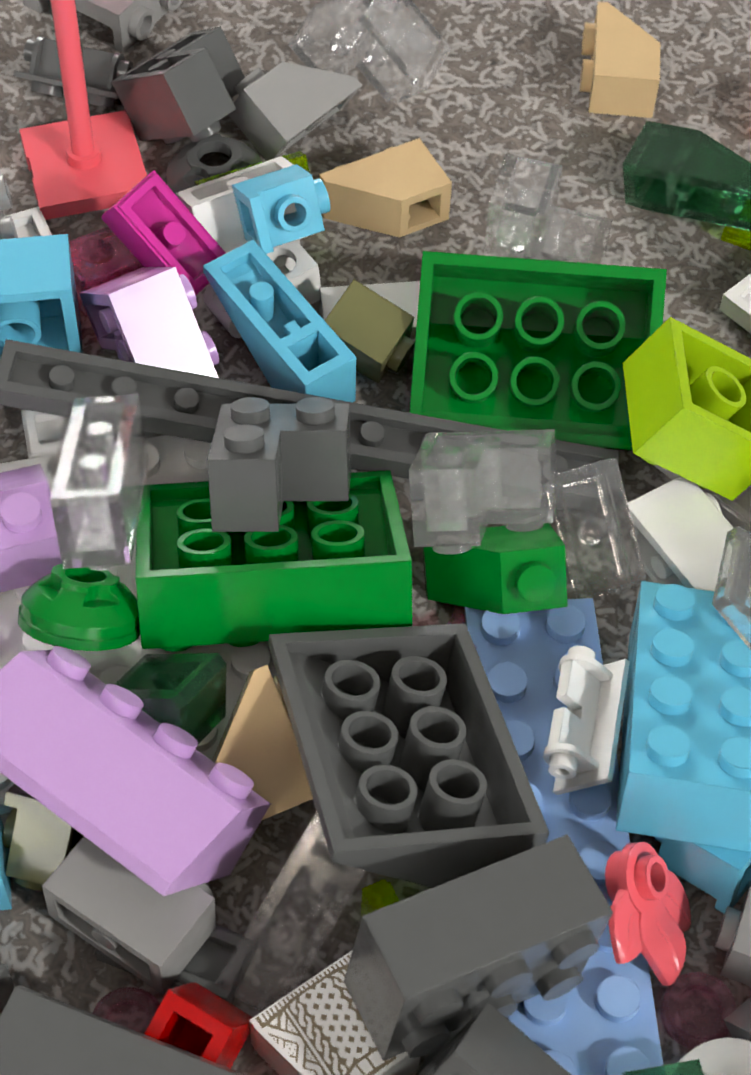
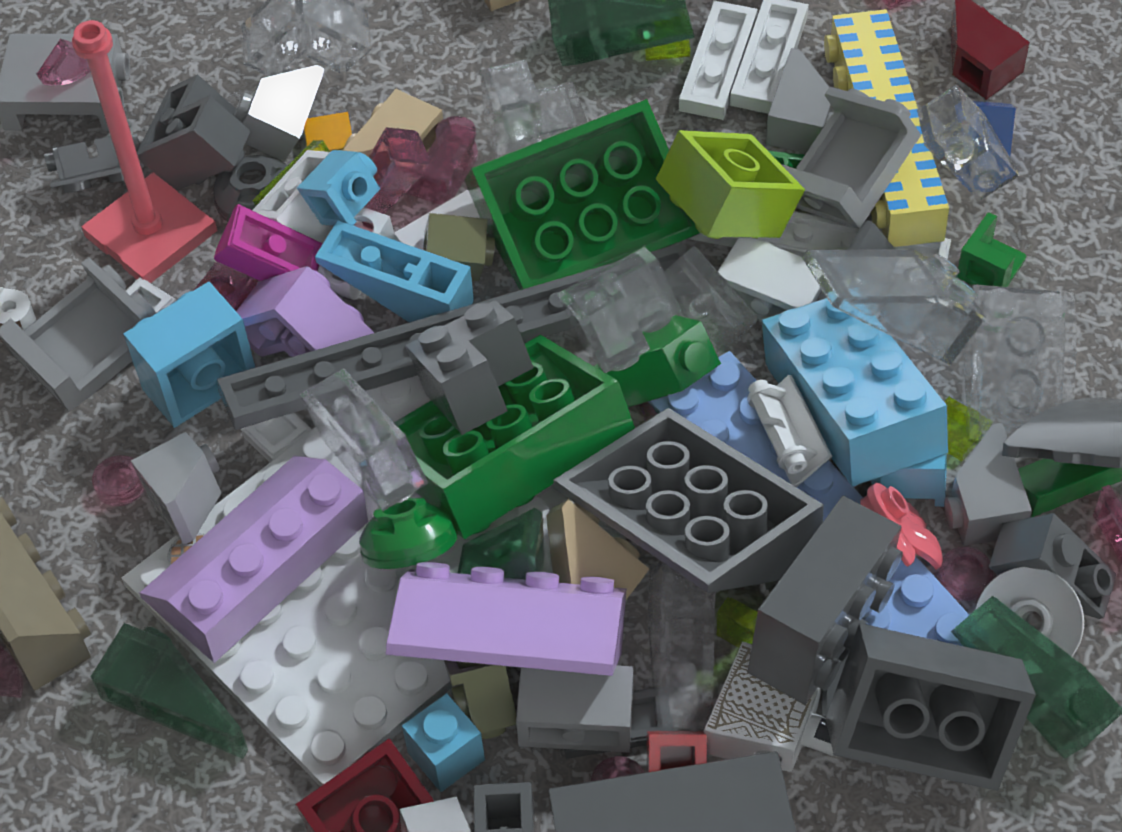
camera: 25 degrees left, 0 degrees up
(329, 150) = (331, 129): none -> light orange tile
(356, 217) = (399, 164): none -> clear pink slope
(443, 227) = (451, 160): none -> clear pink leg

